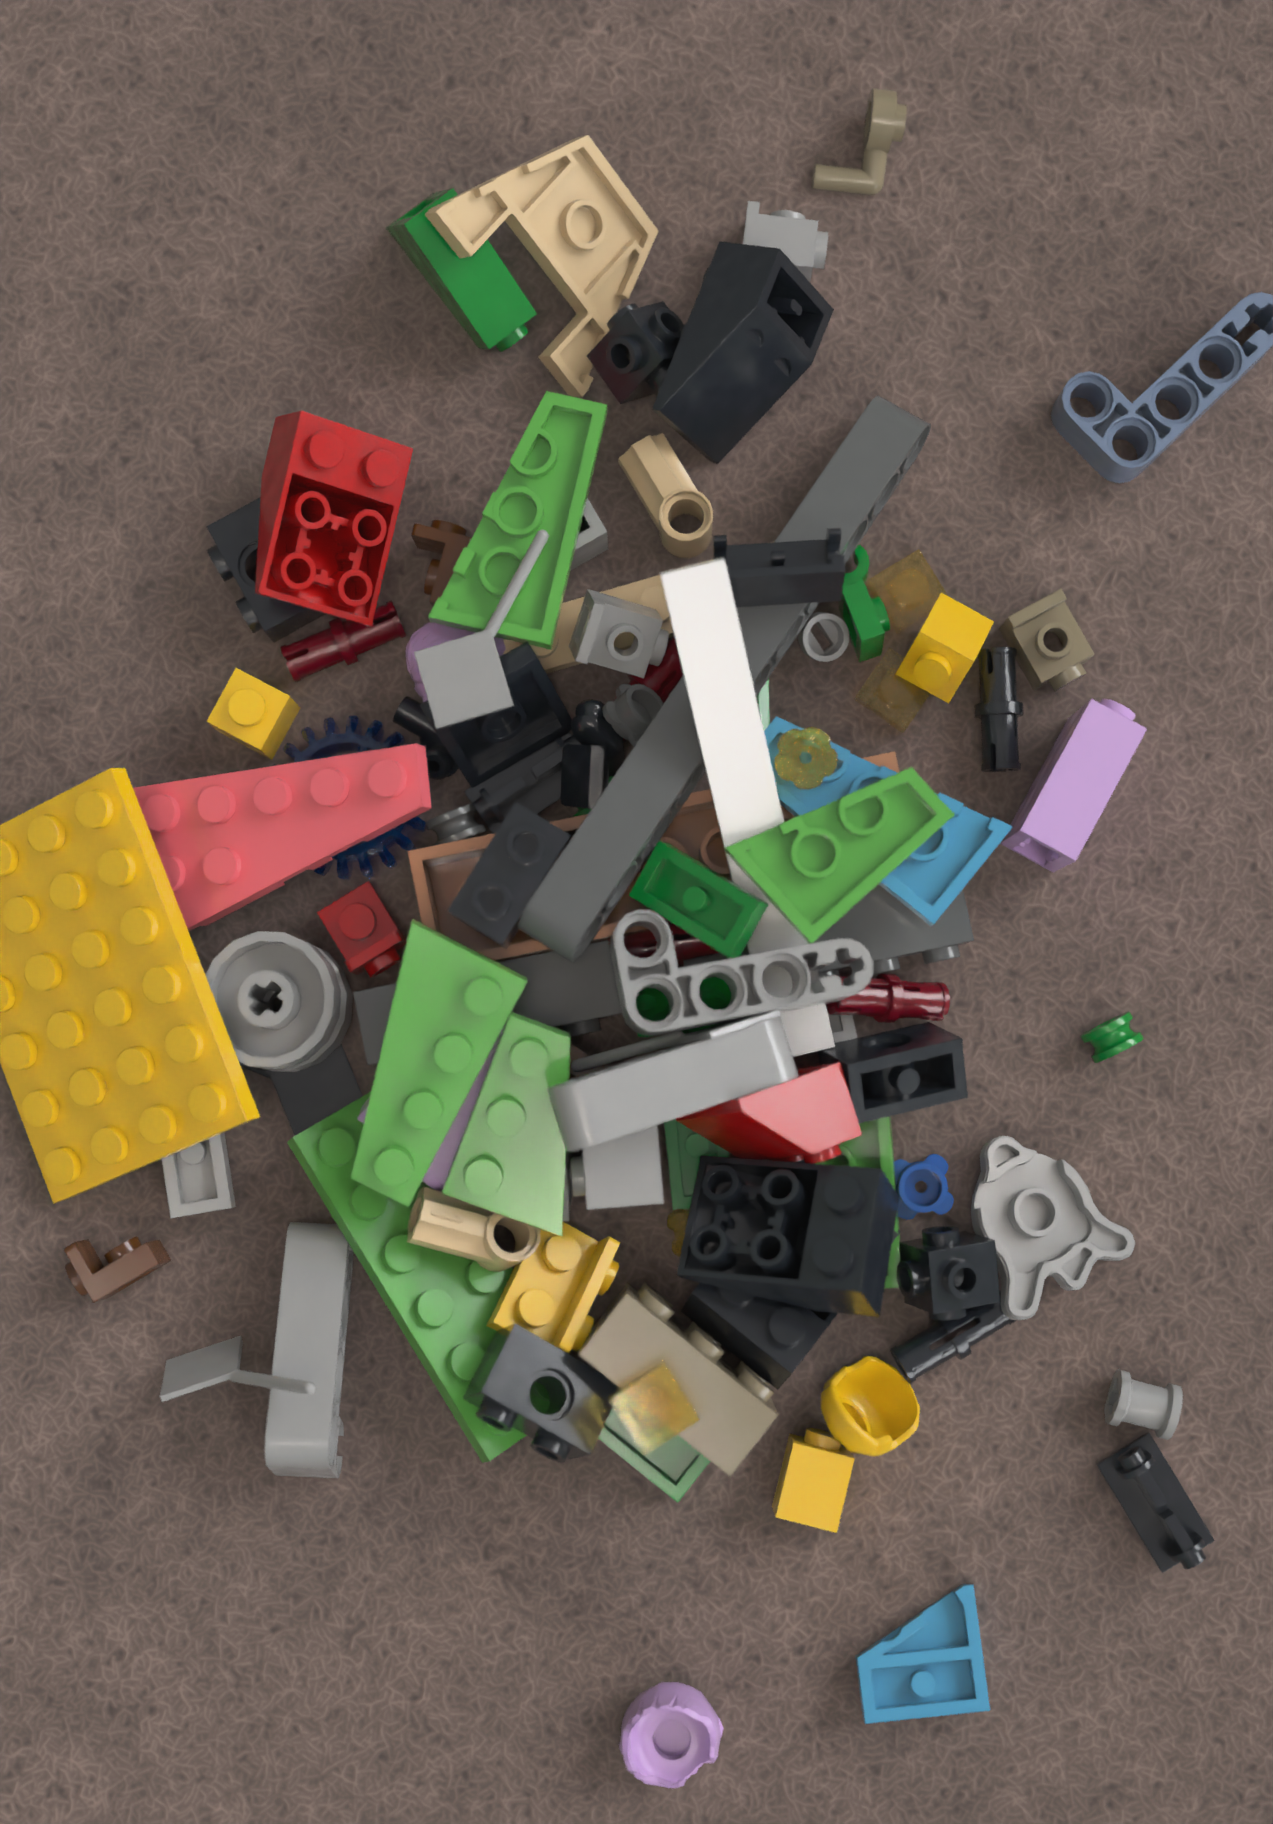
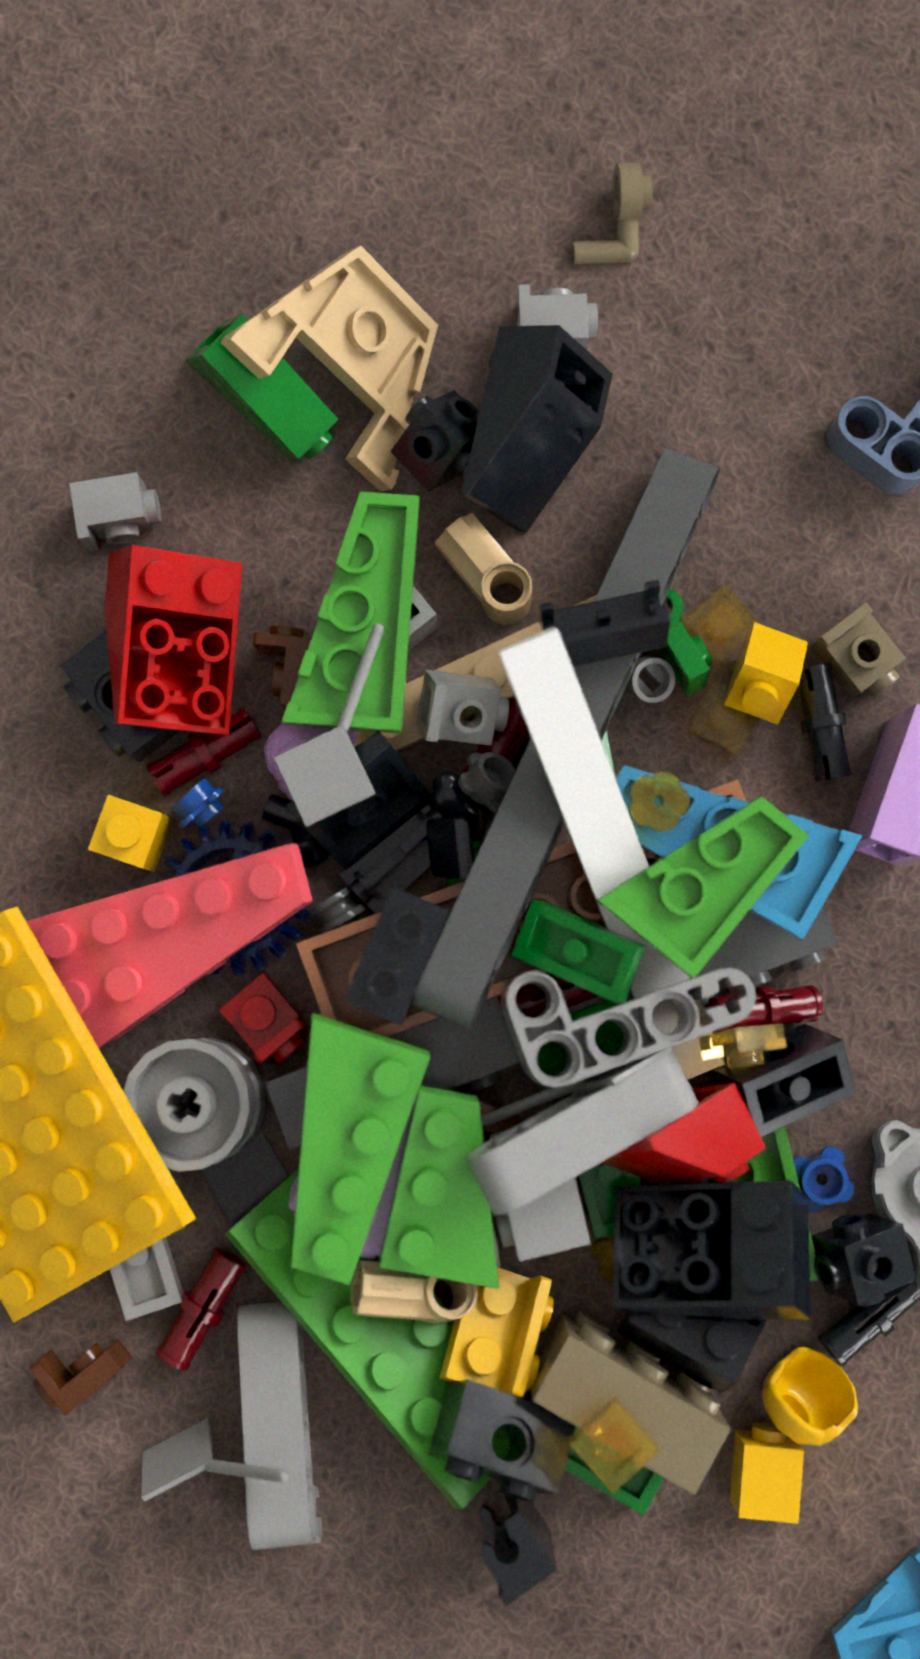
camera: 10 degrees left, 0 degrees up
(224, 1251) = (201, 1308): none -> dark red pin
(287, 373) = (113, 509): none -> light grey brick
(329, 695) = (199, 804): none -> blue plate
(543, 1510) = (521, 1551): none -> black hinge
(855, 1025) = (743, 1045): none -> clear yellow plate

